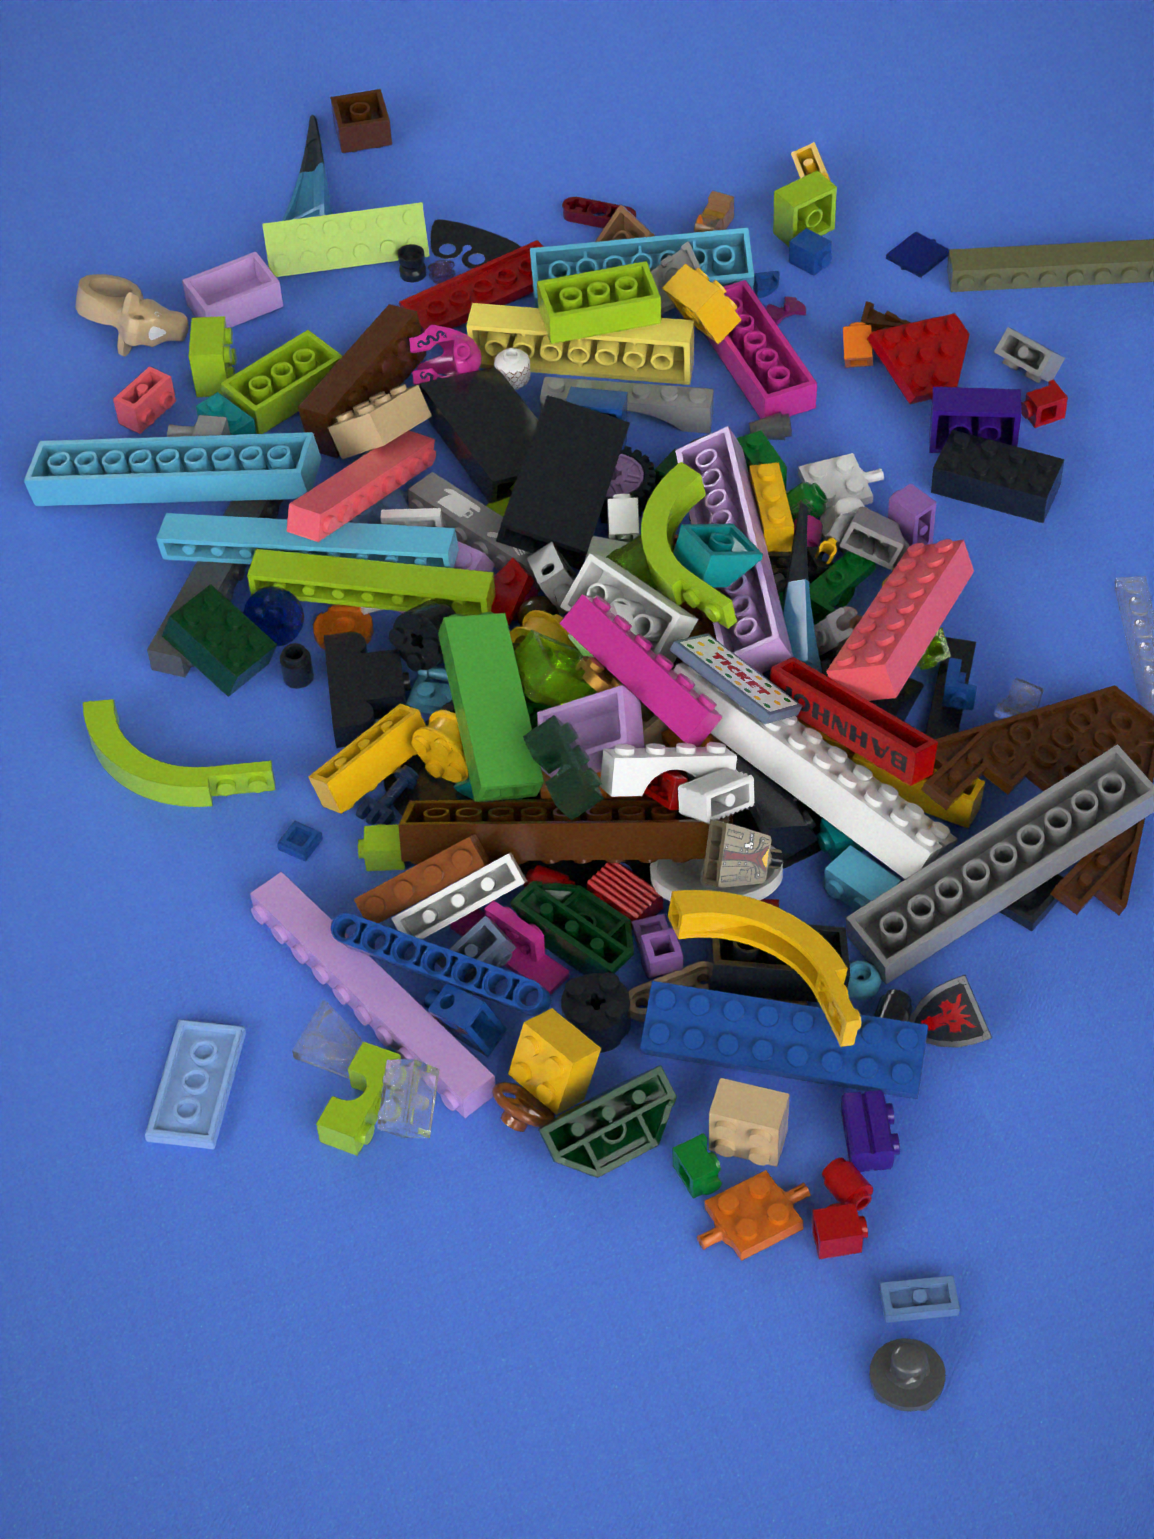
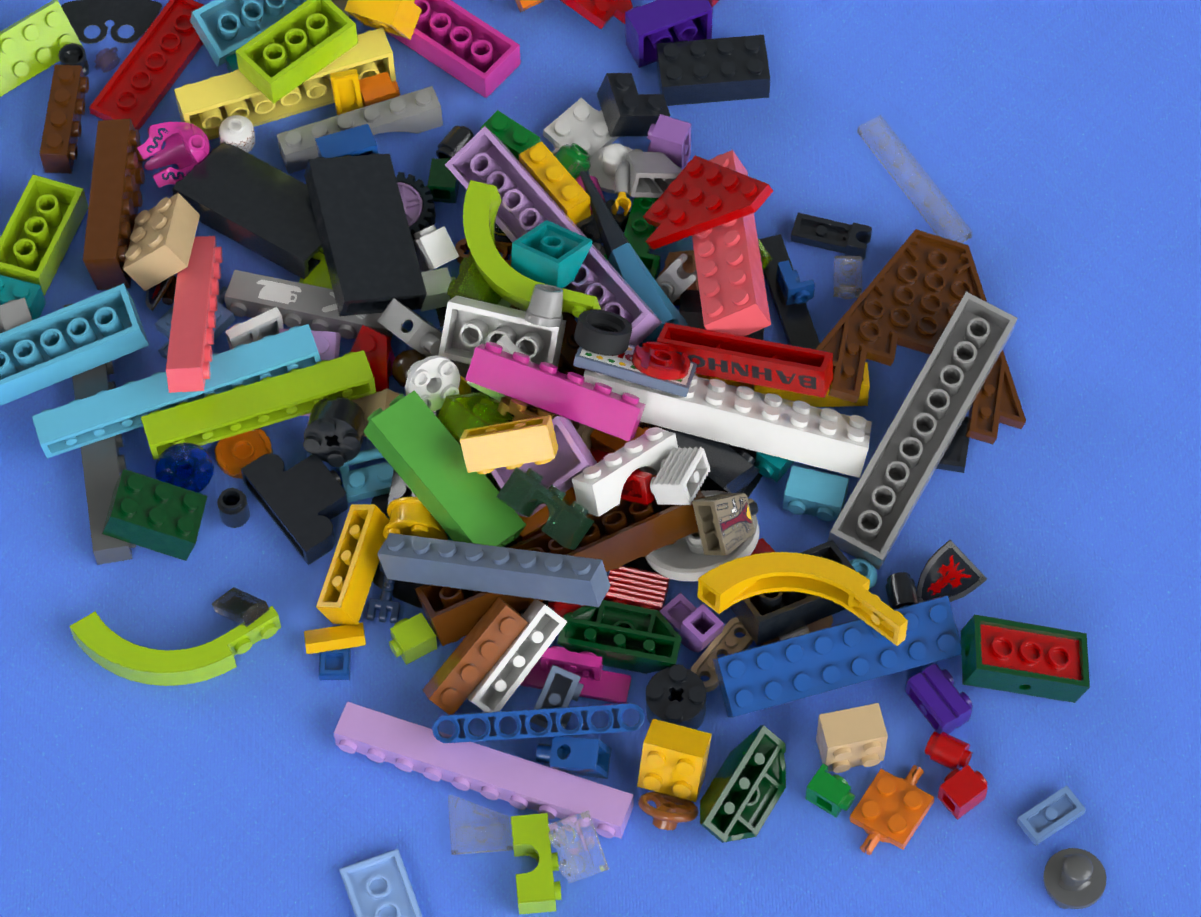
camera: 30 degrees left, 10 degrees up
(244, 751) = (240, 606): none -> clear smoke tile
(313, 816) = (334, 638): none -> yellow tile
(383, 286) = (63, 119): none -> reddish brown brick
(483, 803) = (494, 569): none -> sand blue brick
(531, 610) = (433, 380): none -> white plate
(559, 692) = (509, 444): none -> yellow brick
(631, 362) = (346, 91): none -> yellow tile
(664, 374) = (378, 89): none -> orange brick
(677, 590) = (545, 306): none -> light grey piece
(719, 635) = (603, 332): none -> black tyre
(761, 683) = (660, 361): none -> red tile
(774, 426) = (498, 99): dark grey cone -> none
(888, 472) = (625, 109): none -> black brick
(900, 568) = (703, 199): none -> red wing
(979, 1126) = (1024, 658): none -> brick
(1028, 662) = (831, 235): none -> black plate

